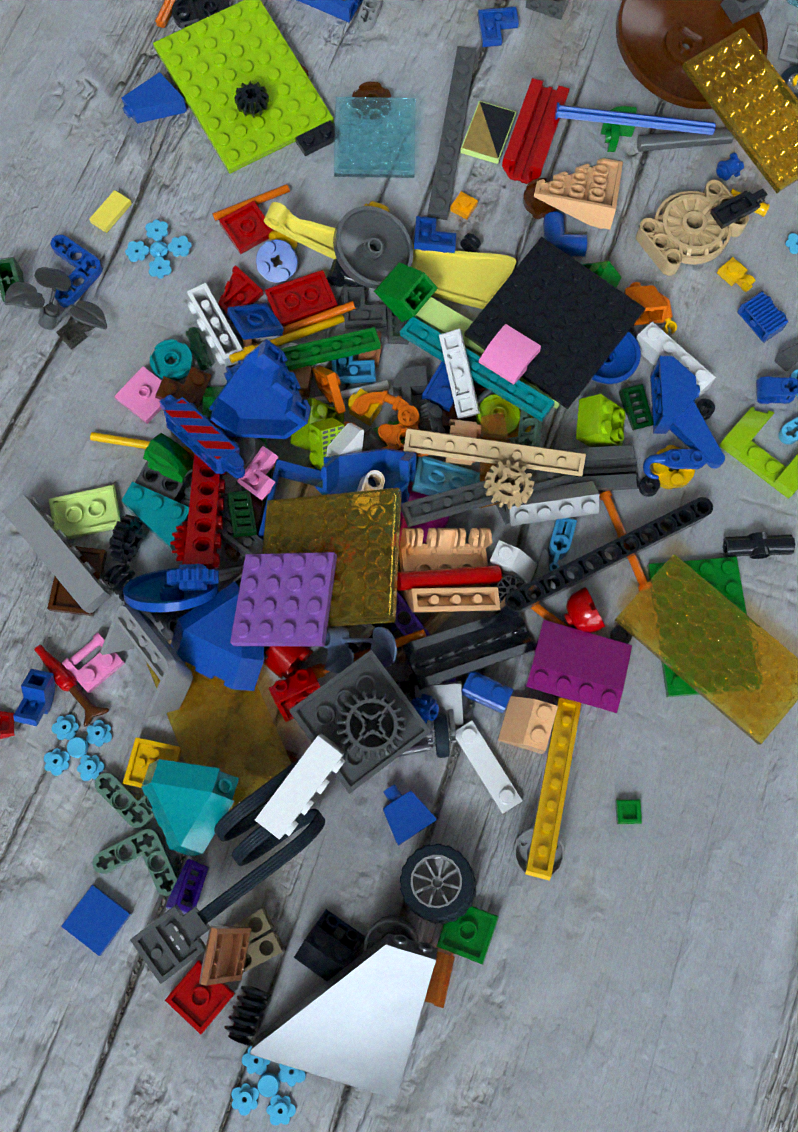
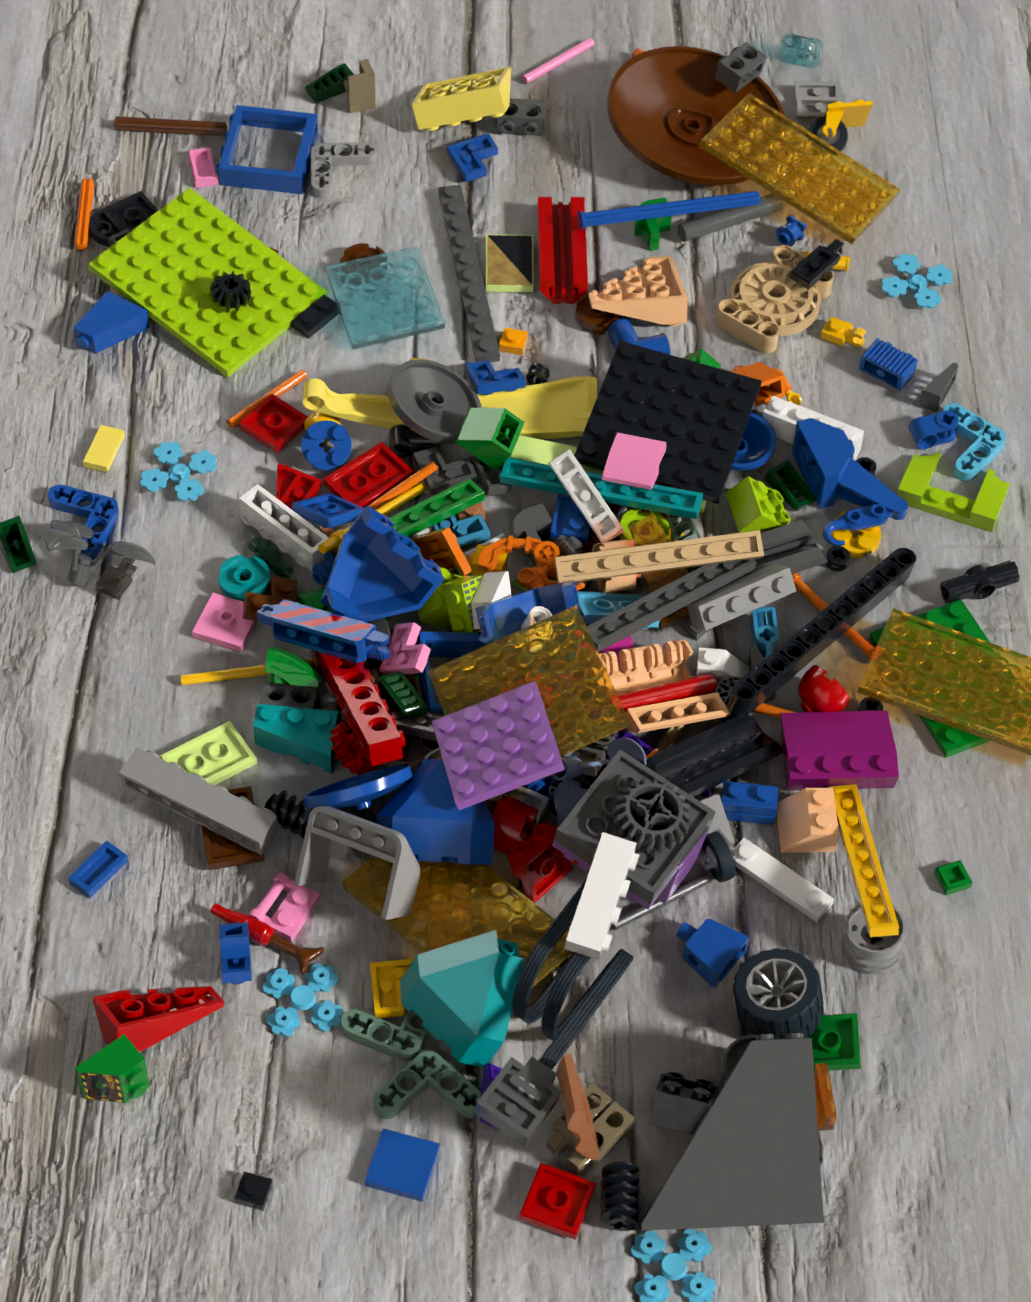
camera: 20 degrees left, 20 degrees down
(126, 539) = (275, 763): black gear -> none
(192, 577) = (386, 753): blue gear -> none
(508, 484) = (689, 580): tan gear -> none

